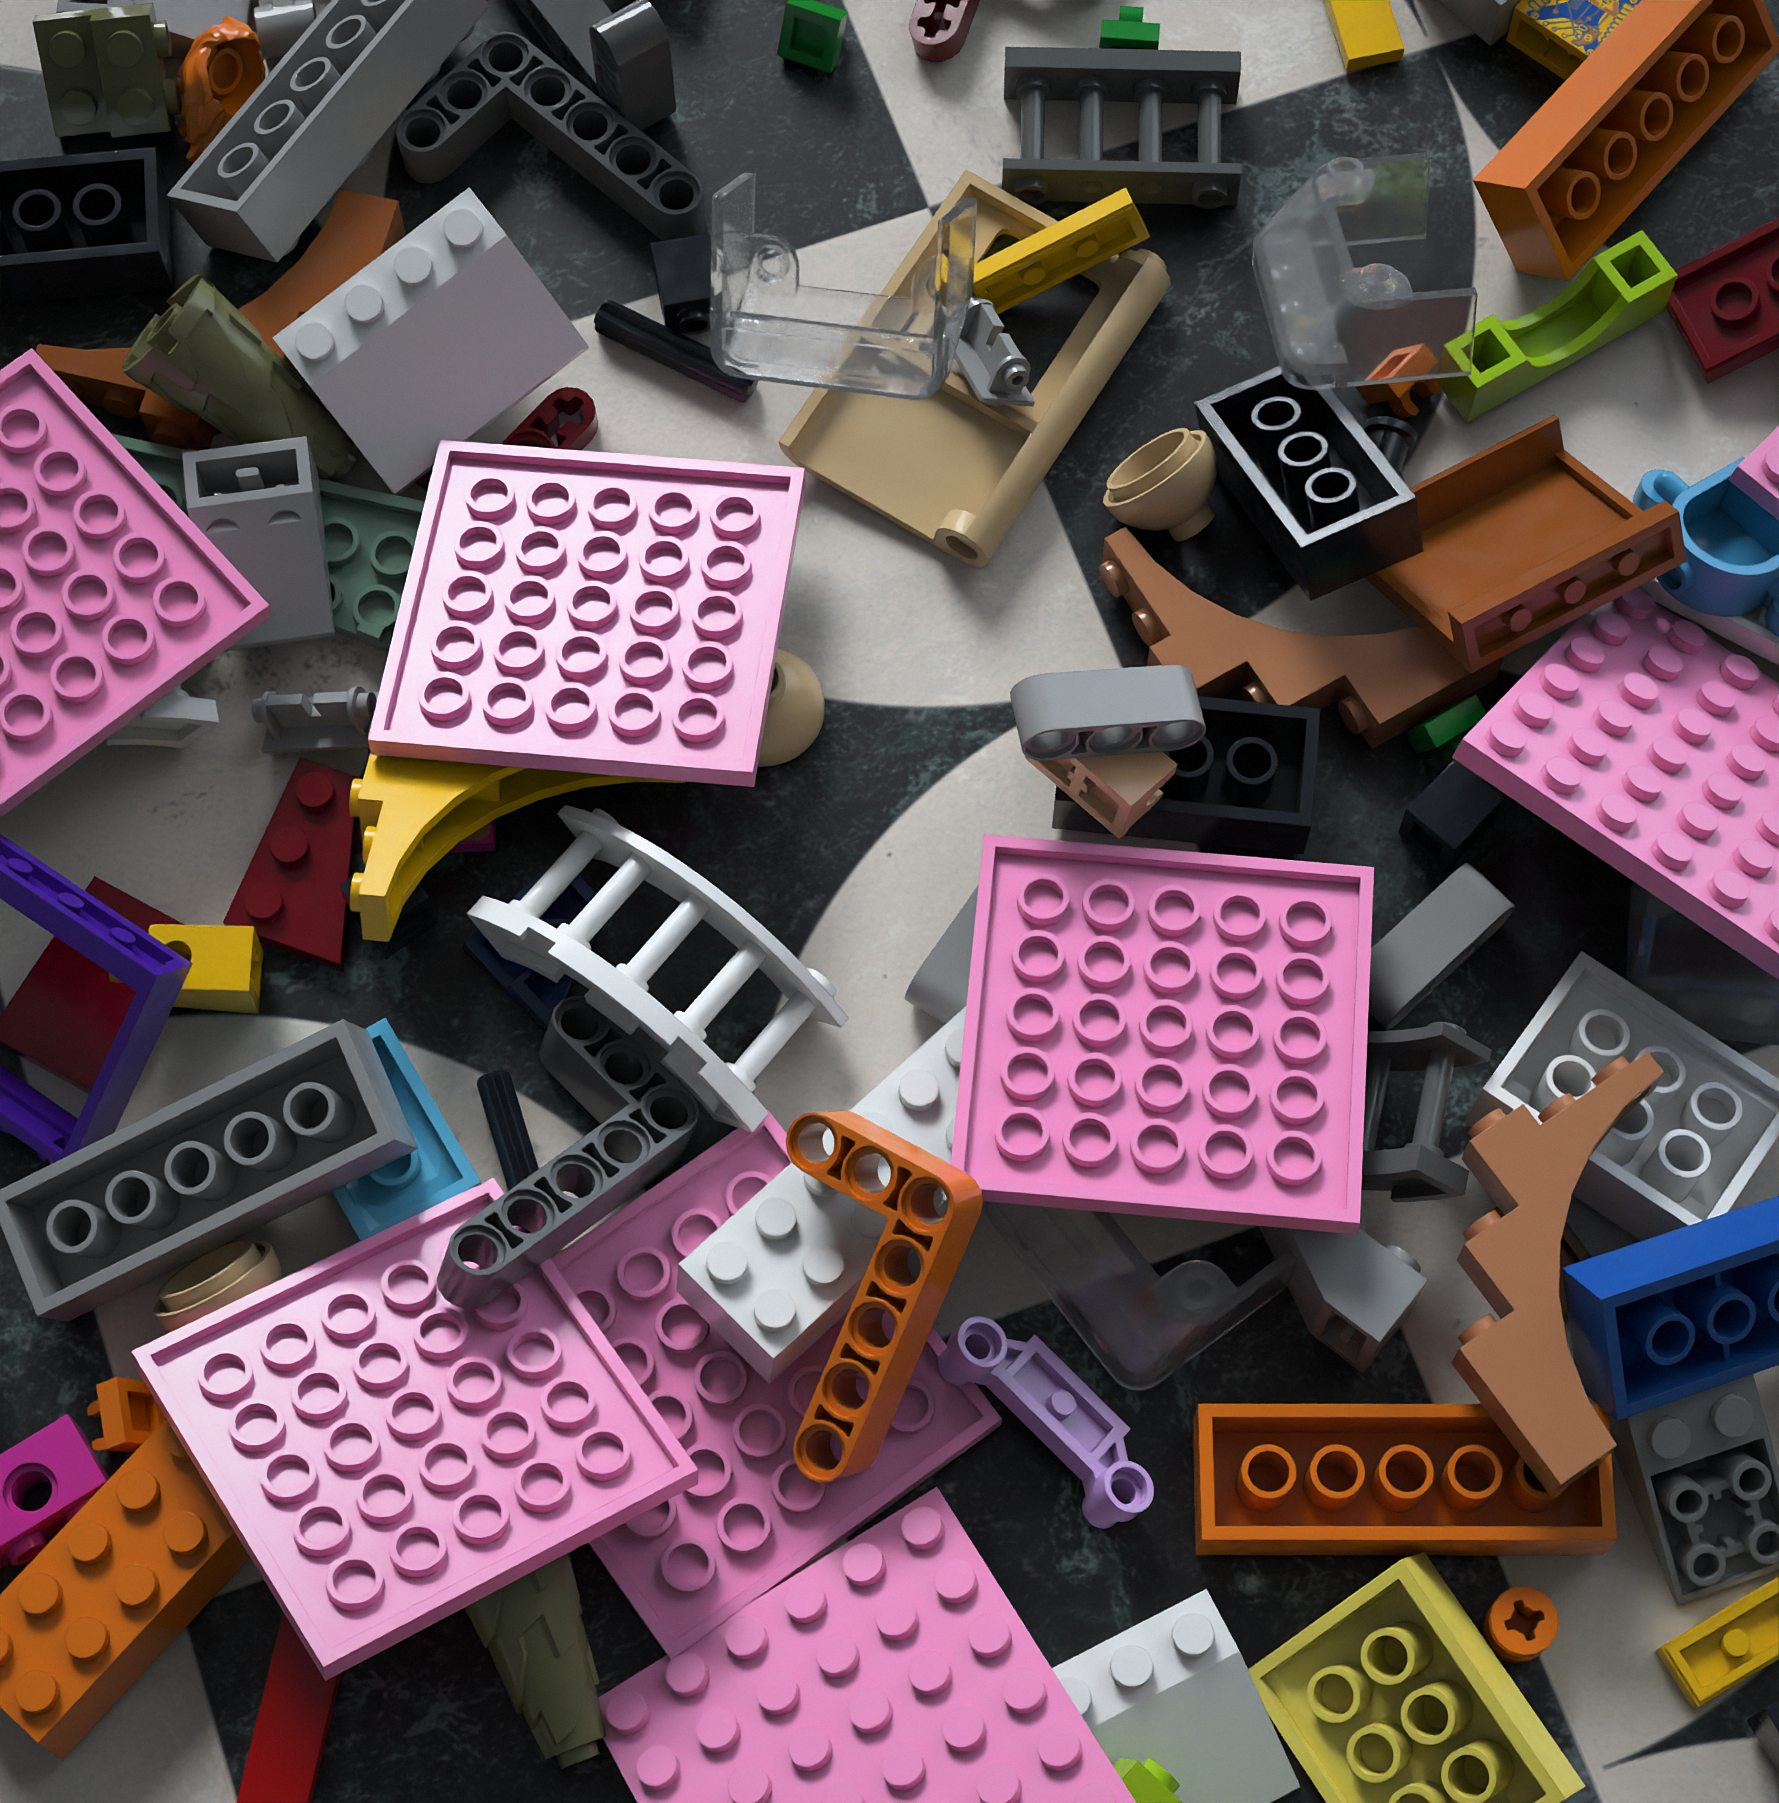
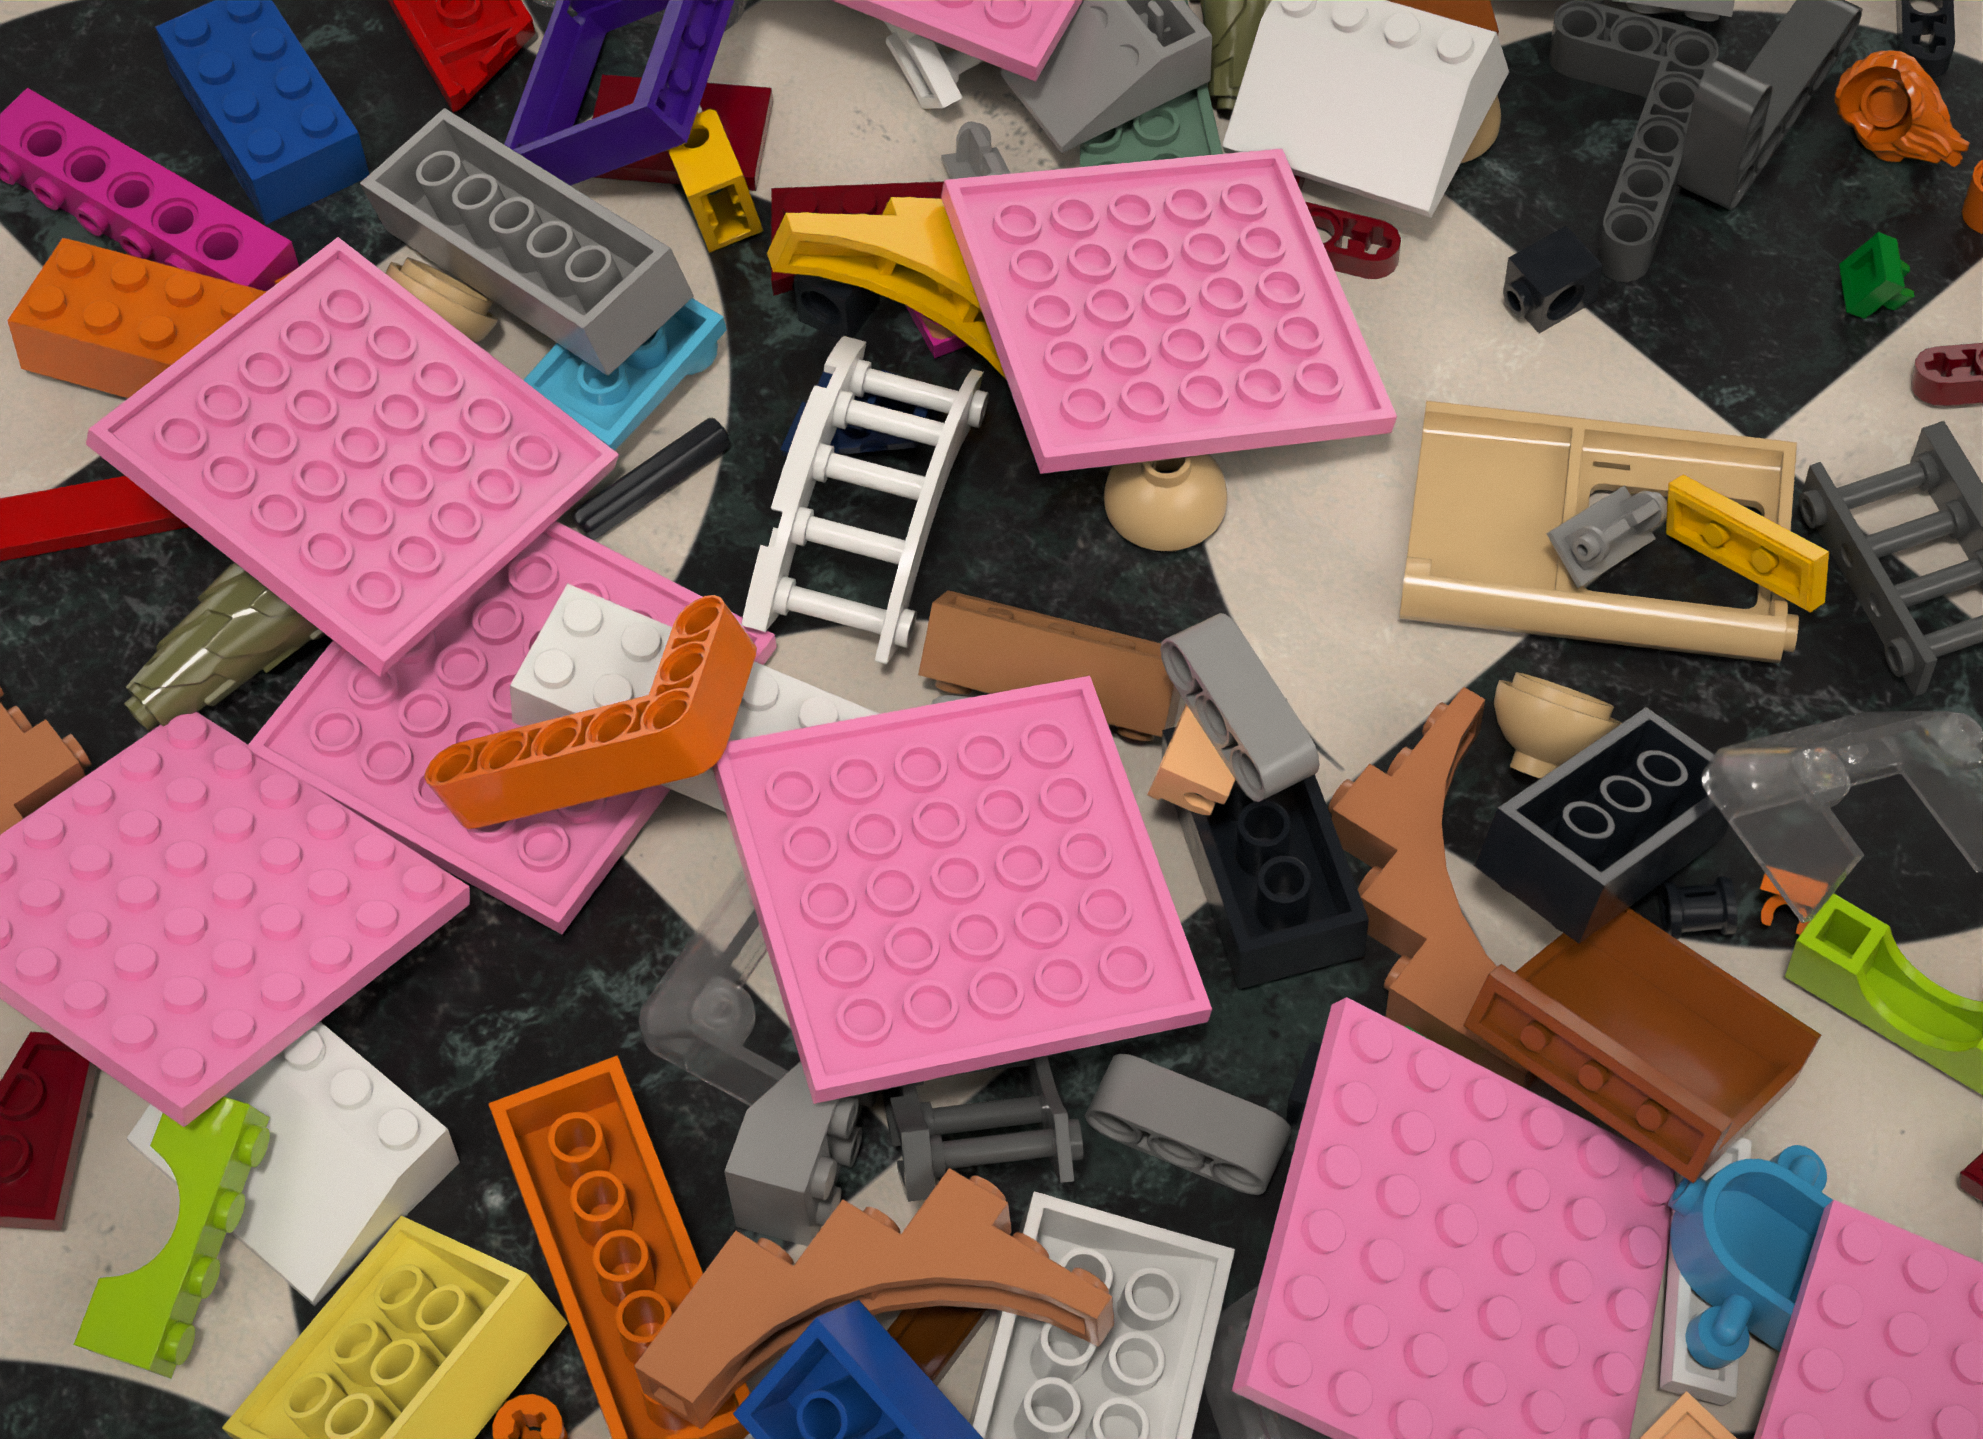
camera: 70 degrees right, 10 degrees down
(627, 1132) = (645, 497): dark grey beam -> none
(669, 349) = (1485, 301): black axle -> none
(826, 337) = (1545, 379): clear windscreen -> none
(916, 871) = (1009, 648): none -> medium nougat brick
(1057, 1410) = (586, 960): lavender plate -> none

